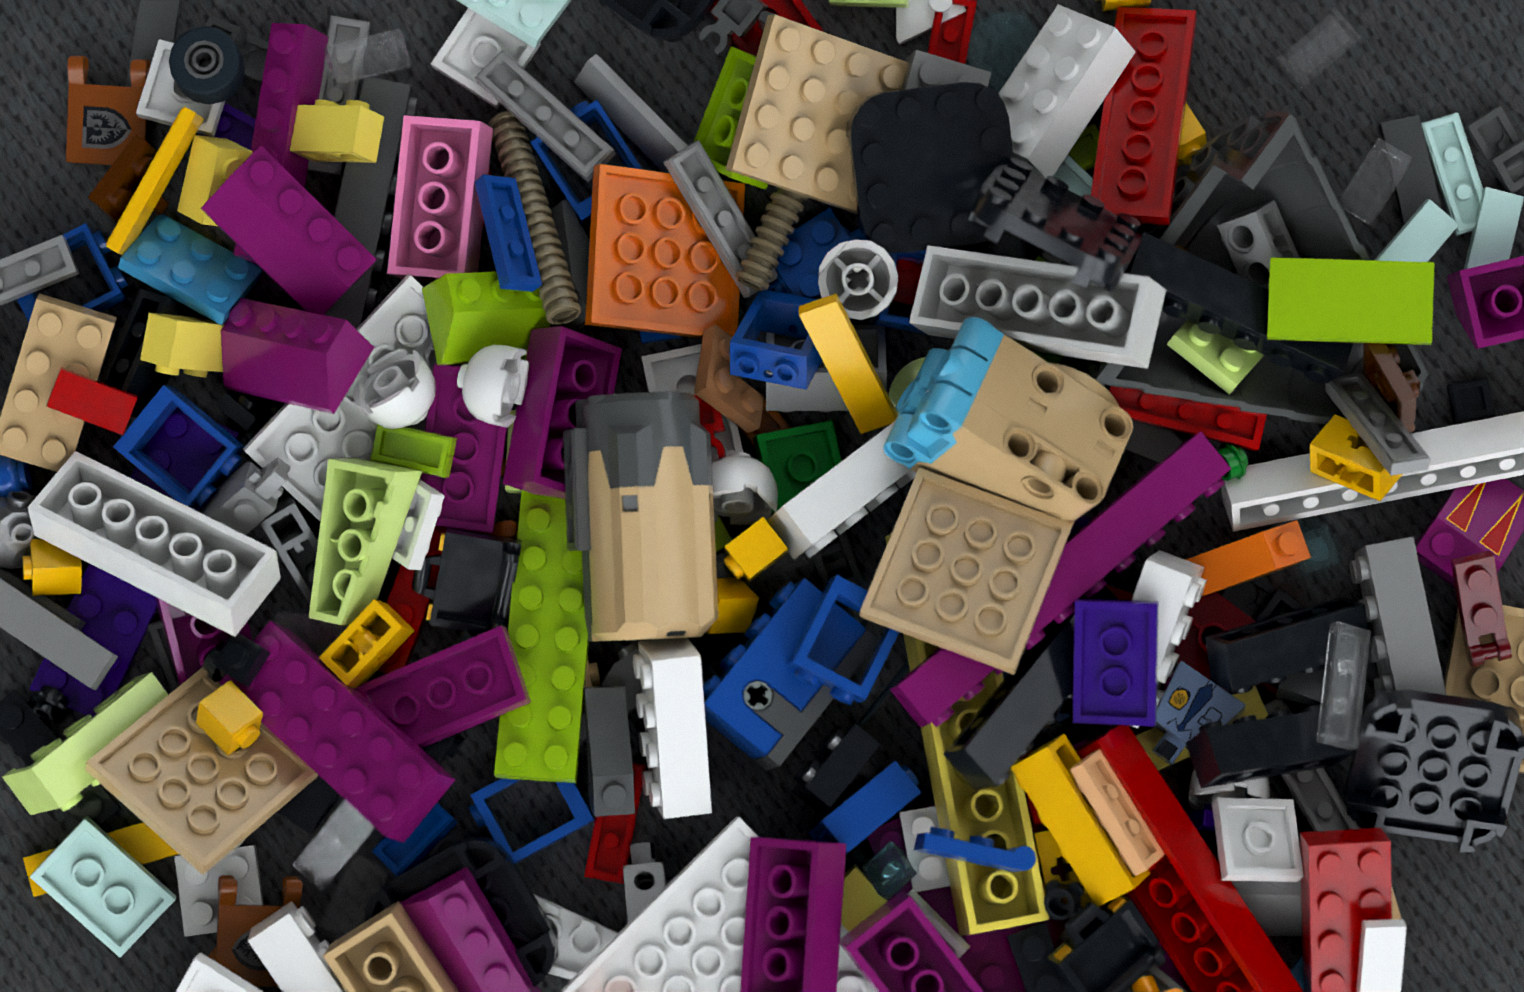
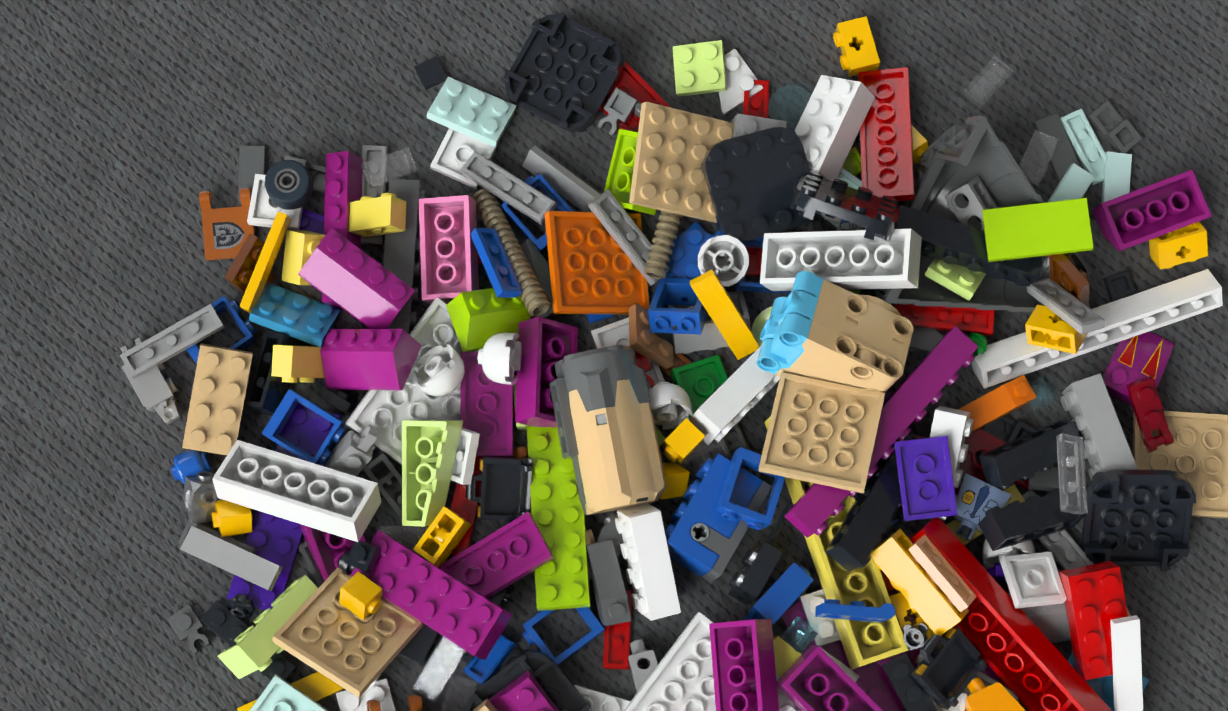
camera: 10 degrees left, 5 degrees down
(91, 401) = (244, 405): red tile -> none
(414, 450) = (455, 408): lime tile -> none

